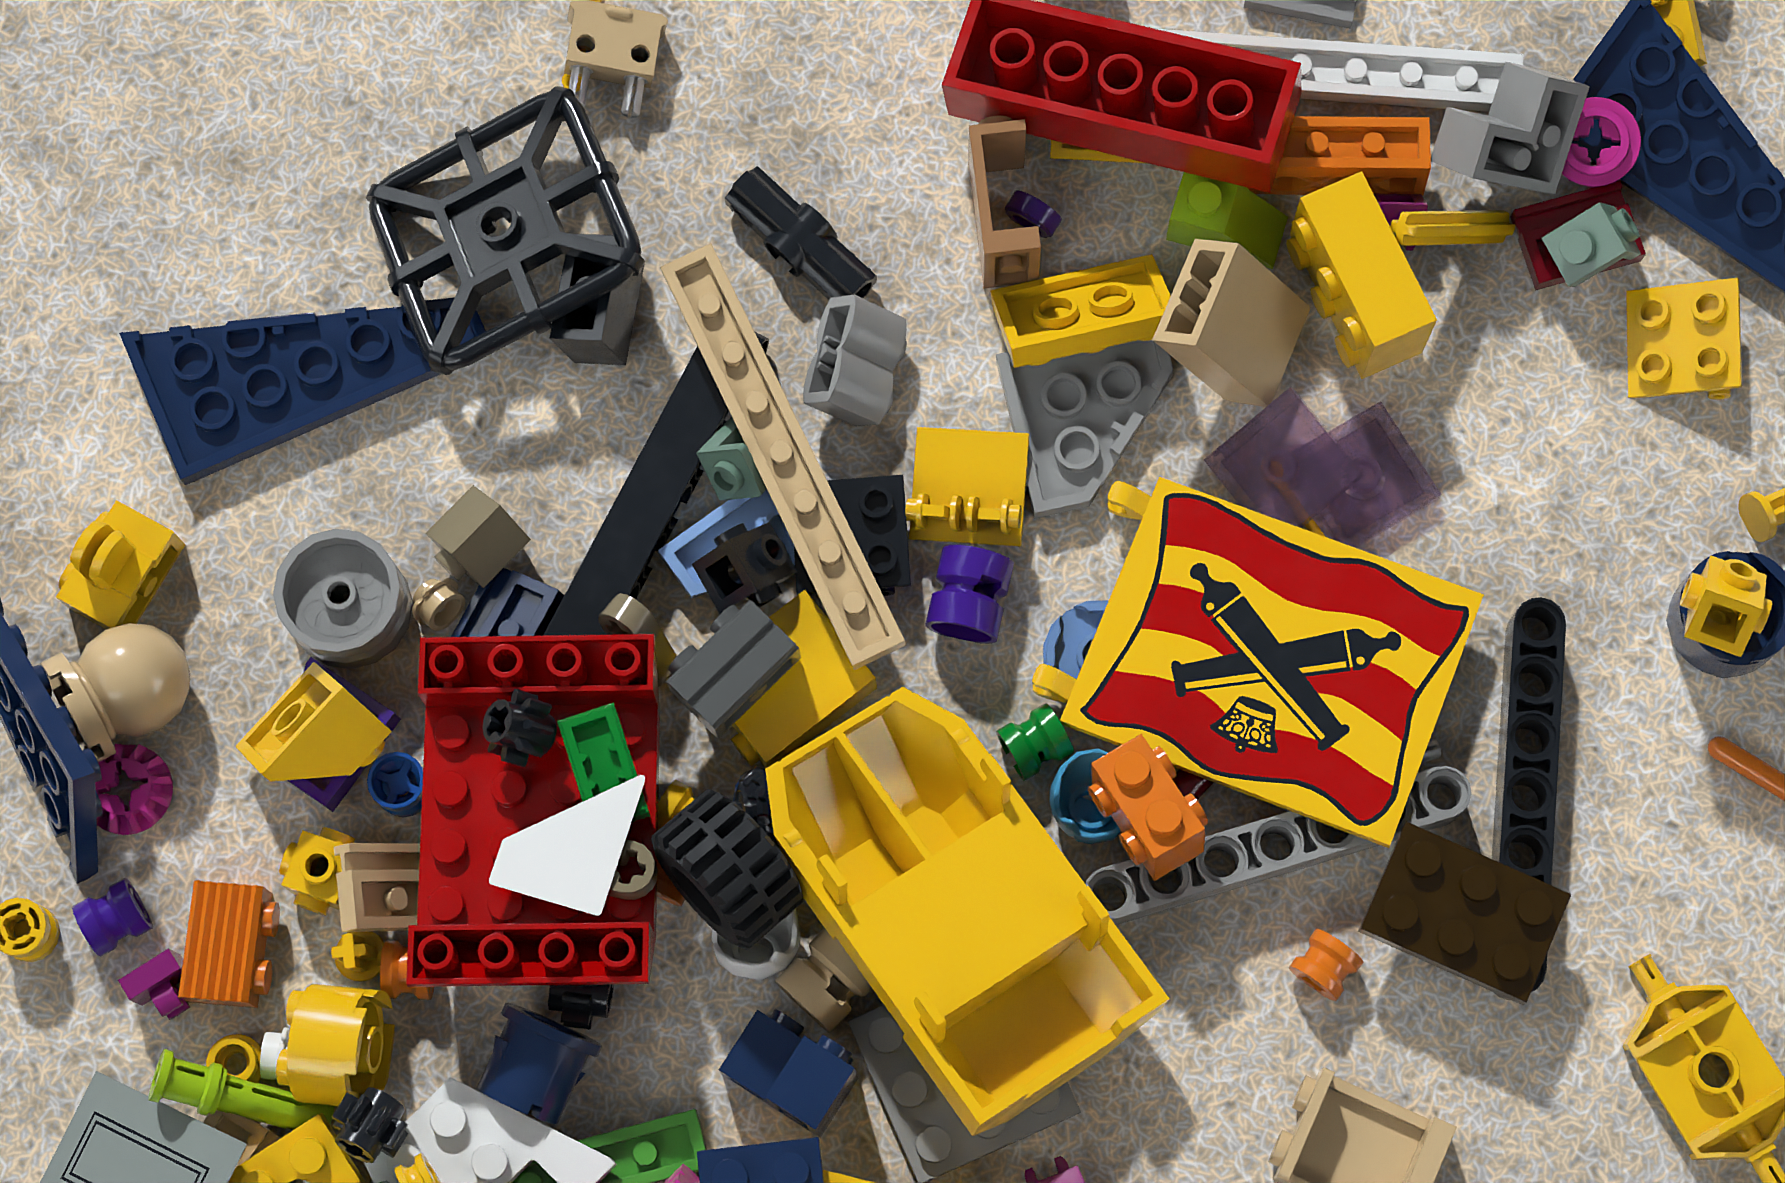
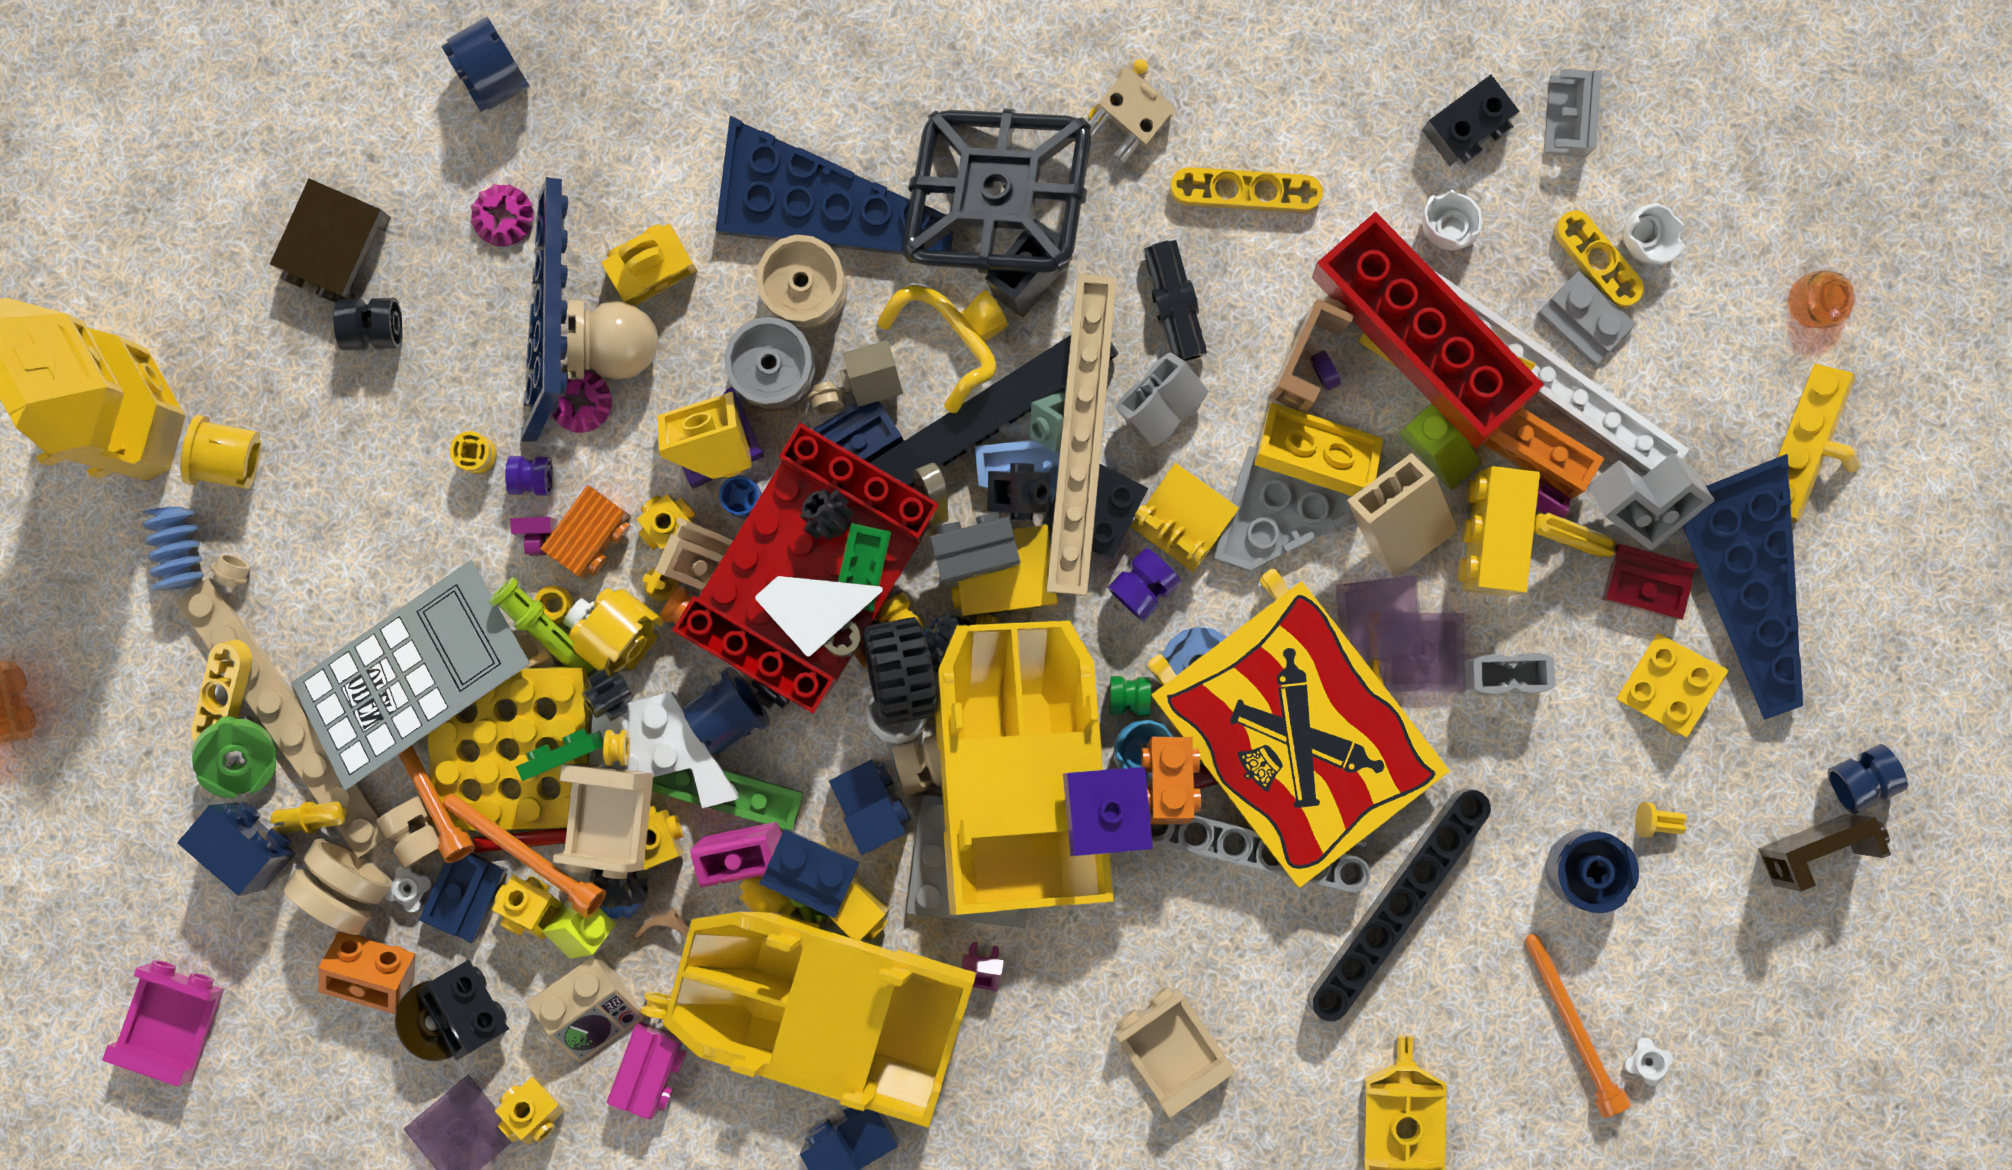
camera: 25 degrees right, 10 degrees up
(318, 446) = (798, 258): none -> tan wheel
(572, 407) = (974, 326): none -> yellow piece
(802, 57) = (1245, 185): none -> yellow beam
(1092, 884) = (1107, 811): none -> dark purple plate
(1326, 964) = (1219, 930): orange wheel -> none
(1464, 913) = (1318, 953): dark brown plate -> none
(1489, 435) = (1516, 673): none -> light grey brick
(1592, 242) = (1654, 596): sand green bracket -> none
(1613, 162) = (1701, 552): dark pink gear -> none
(1725, 605) = (1588, 871): yellow brick -> none

